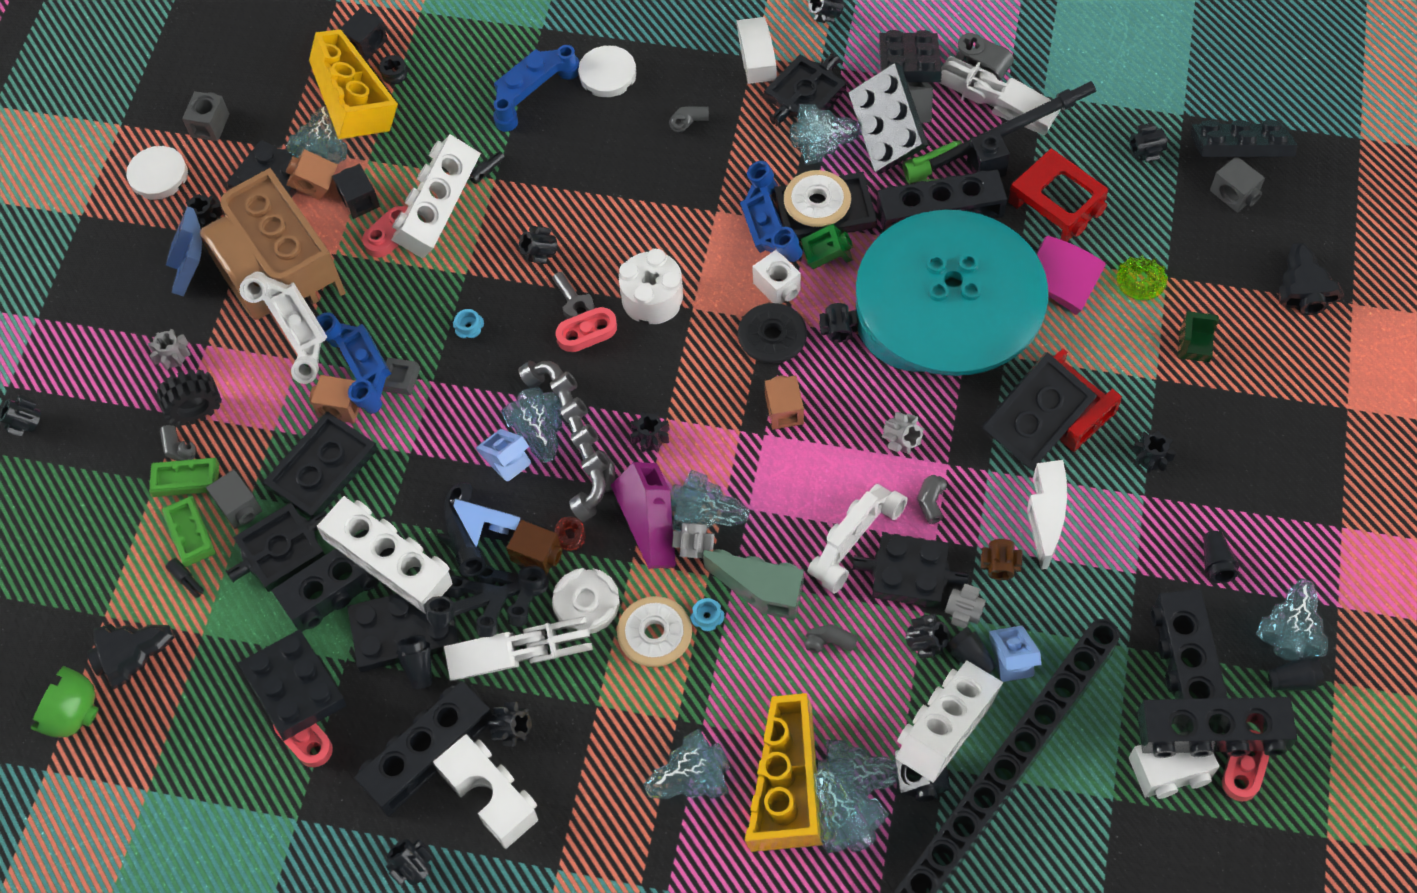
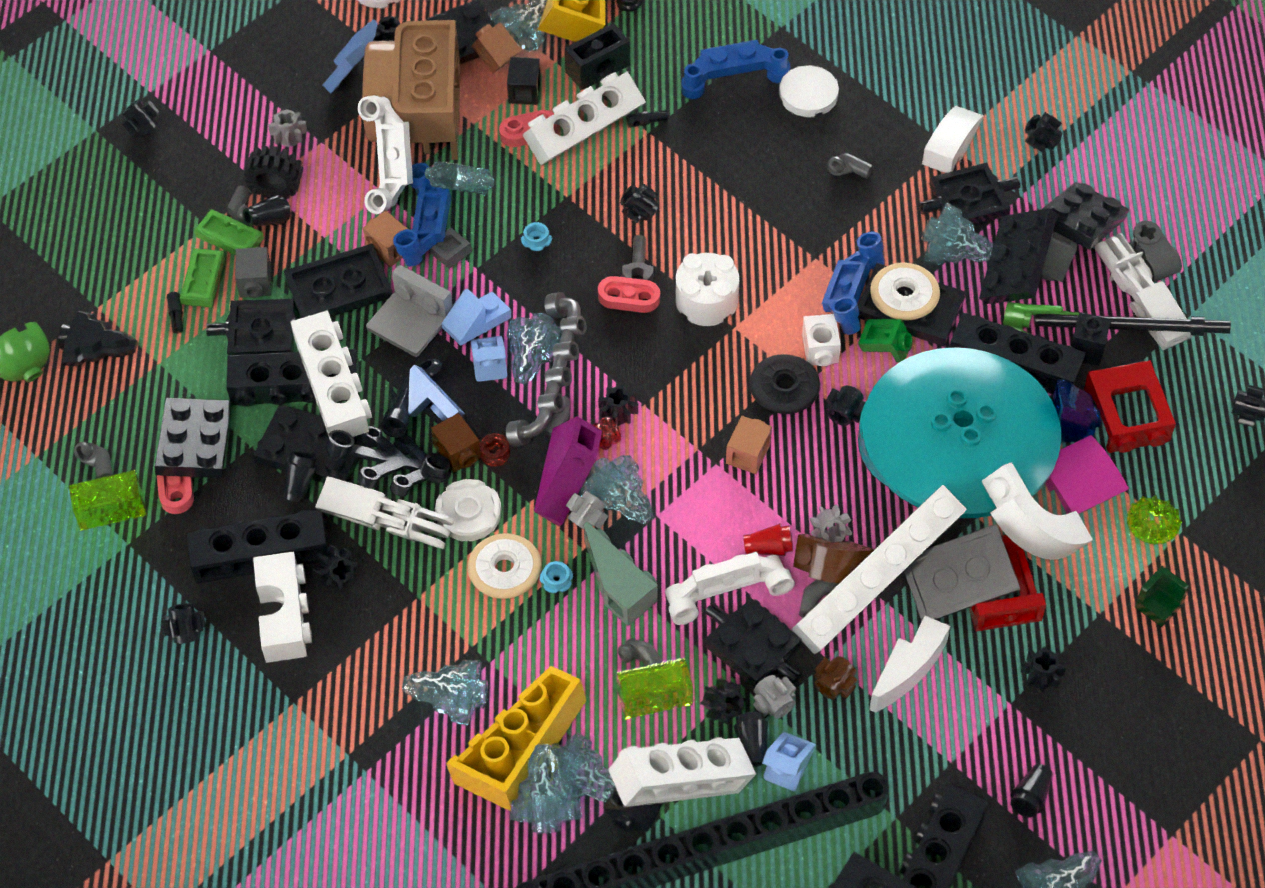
camera: 30 degrees right, 5 degrees down
(208, 436) = (269, 211): none -> black cone
(210, 757) = (95, 457): none -> dark grey arm
(252, 791) = (107, 500): none -> clear neon green brick
(368, 307) = (459, 177): none -> clear light blue rock
(408, 135) = (597, 56): none -> black brick
(408, 453) = (412, 312): none -> light grey bracket
(466, 425) = (474, 316): none -> light blue slope
(661, 457) = (610, 433): none -> clear red bush
(862, 474) = (770, 541): none -> red cone
(863, 660) = (654, 688): none -> clear neon green brick
(929, 463) = (827, 559): none -> reddish brown brick
(989, 394) = (878, 569): none -> white arch
(1025, 221) = (1075, 412): none -> clear blue slope
(1061, 335) = (1028, 523): none -> white arch

